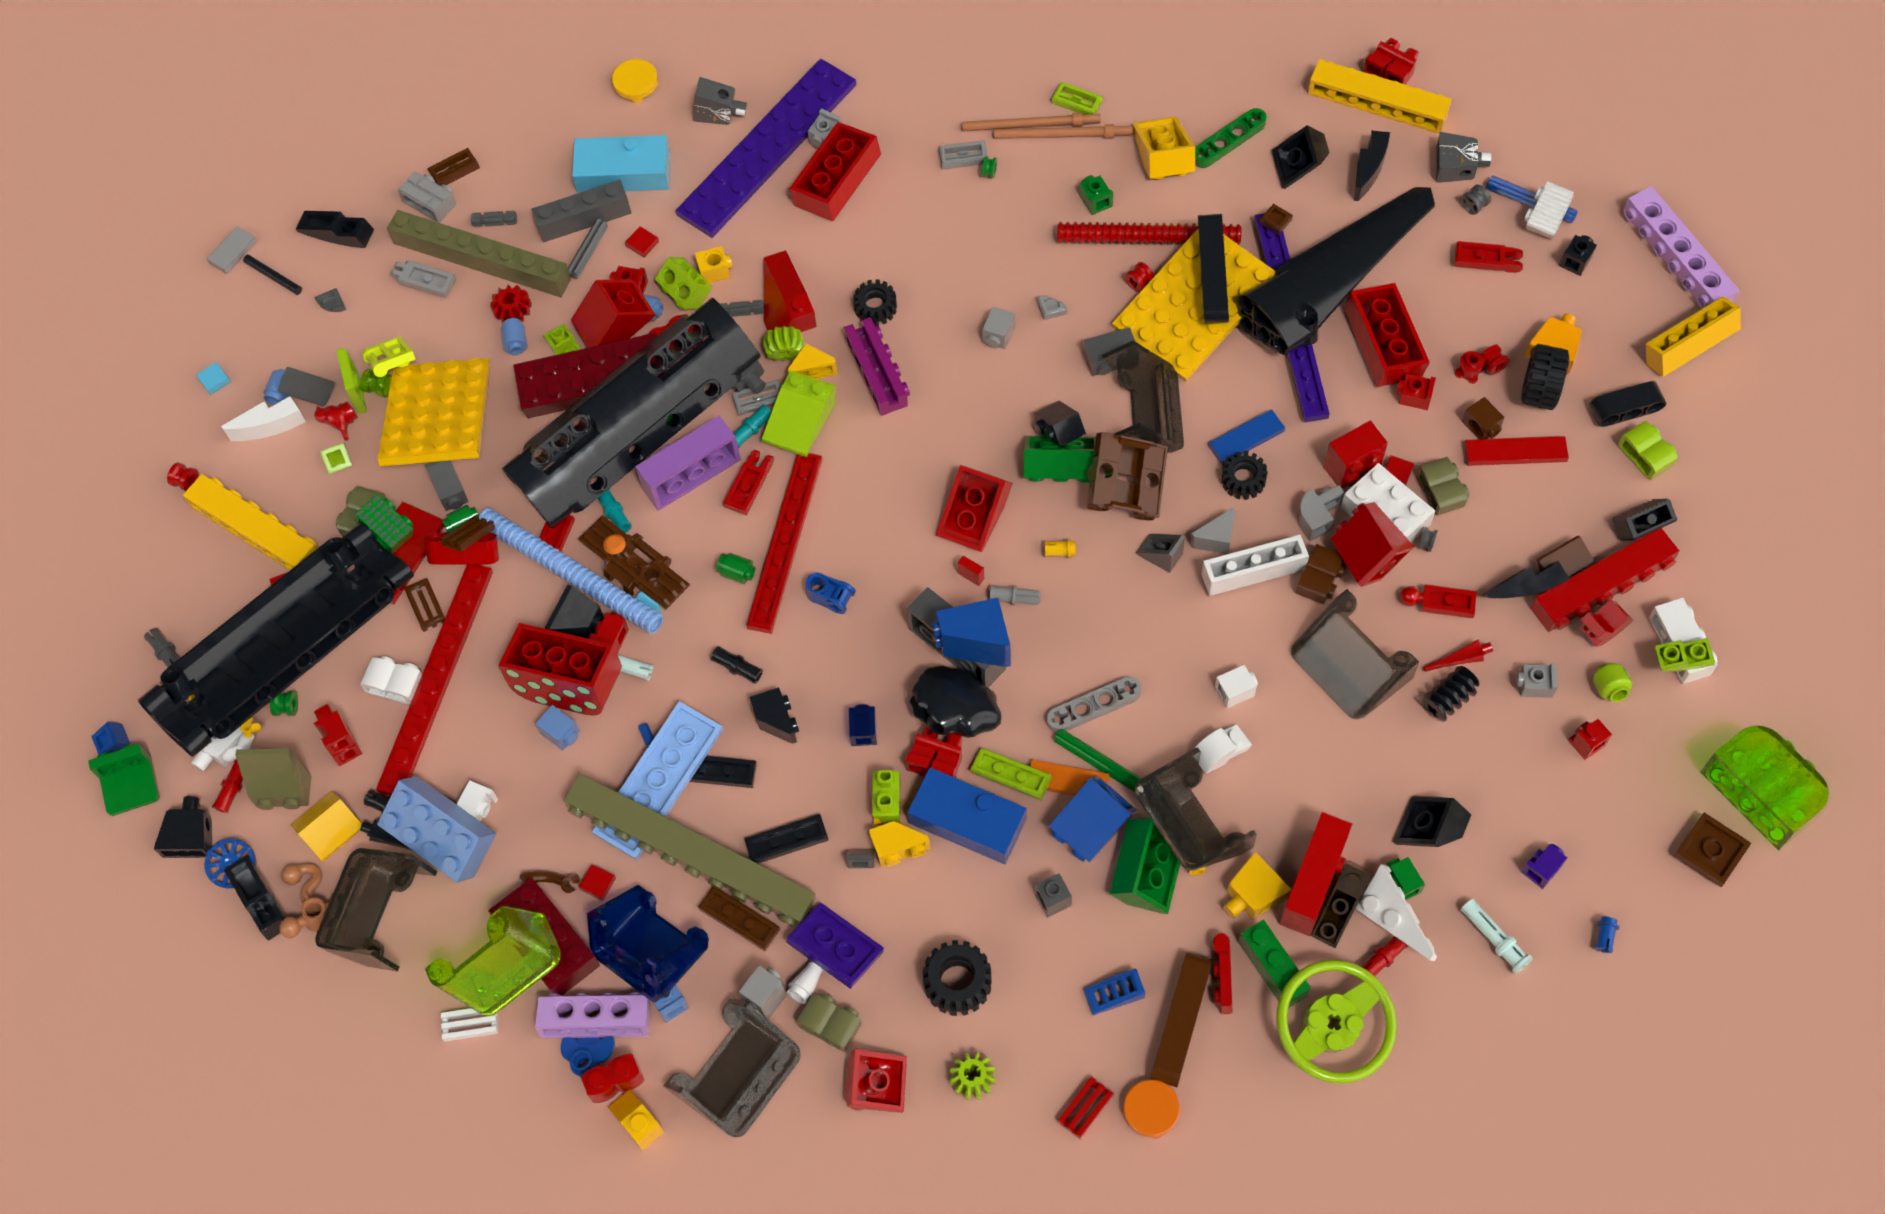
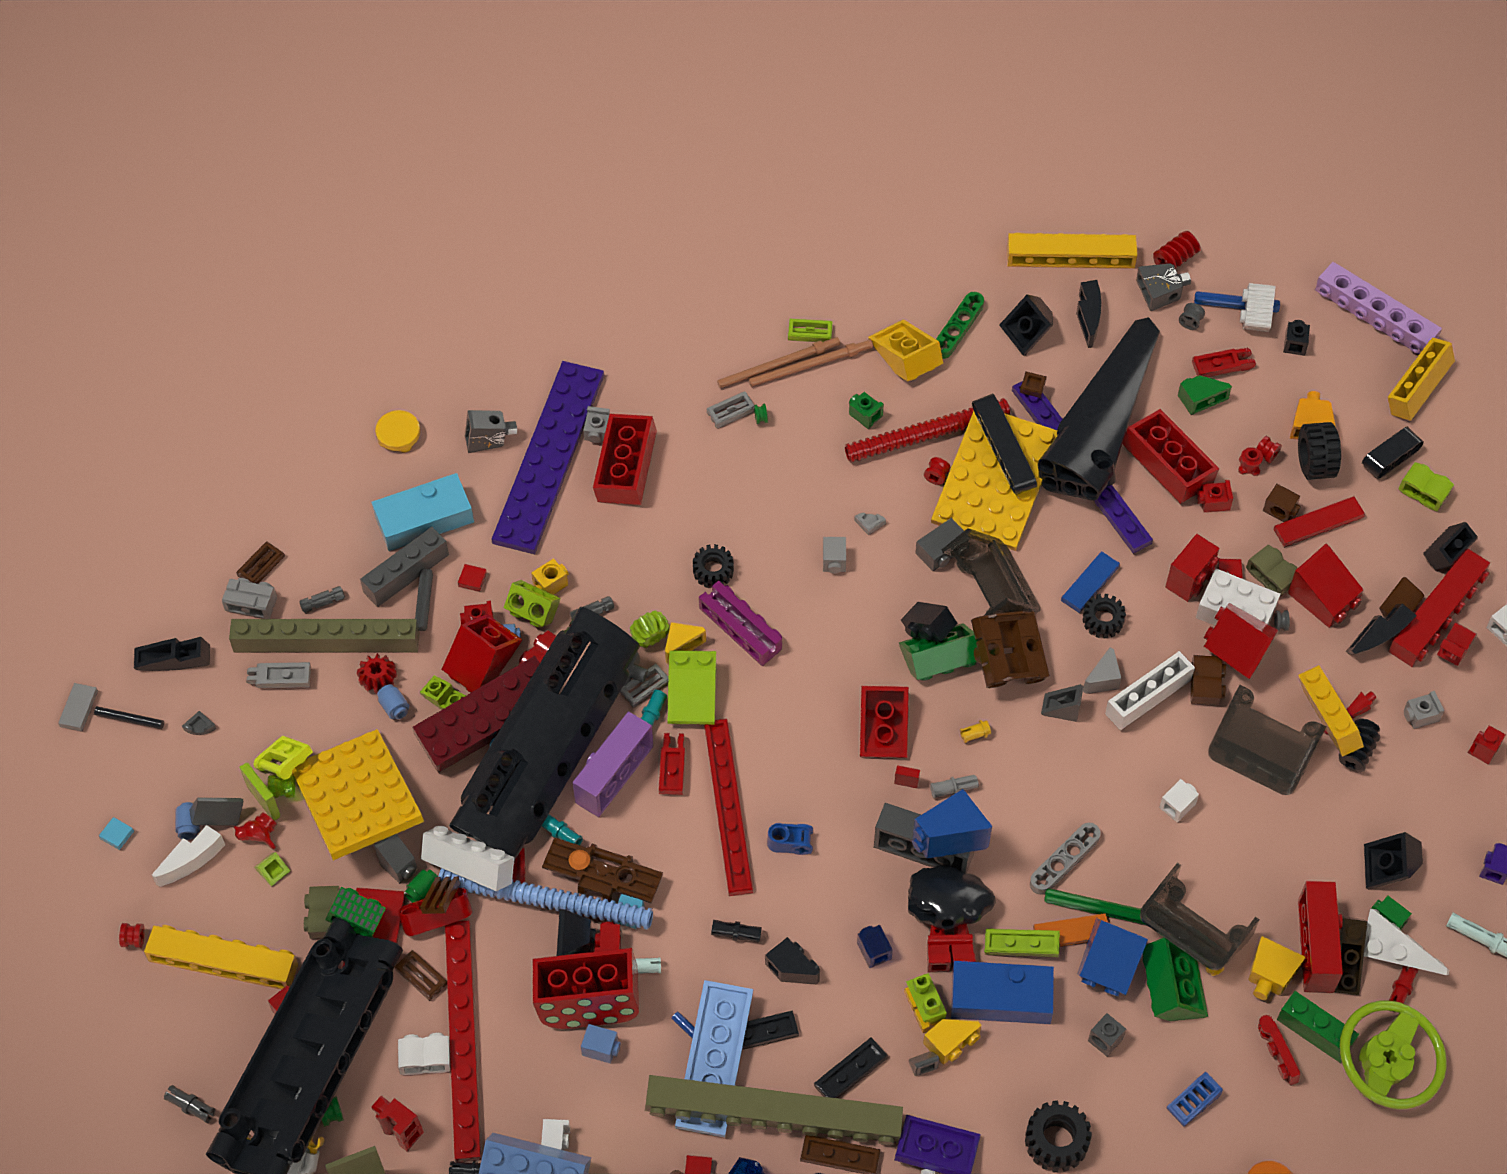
camera: 25 degrees left, 5 degrees down
(509, 507) = (467, 858): none -> white brick
(735, 567) = (696, 844): green brick -> none
(785, 296) = (628, 585): red wedge -> none
(1181, 1019) = (1261, 1101): reddish brown beam -> none
(1222, 746) = (1191, 856): white brick -> none
(1314, 511) = (1177, 629): light grey brick -> none
(1391, 63) = (1065, 214): red hips -> none
(1433, 647) = (1331, 710): none -> yellow brick
(1441, 600) = (1331, 664): red plate -> none
(1451, 281) = (1202, 393): none -> green slope
(1489, 519) = (1326, 587): none -> red slope
(1491, 126) = (1177, 250): none -> red piece
(1612, 682) = (1484, 691): lime head -> none

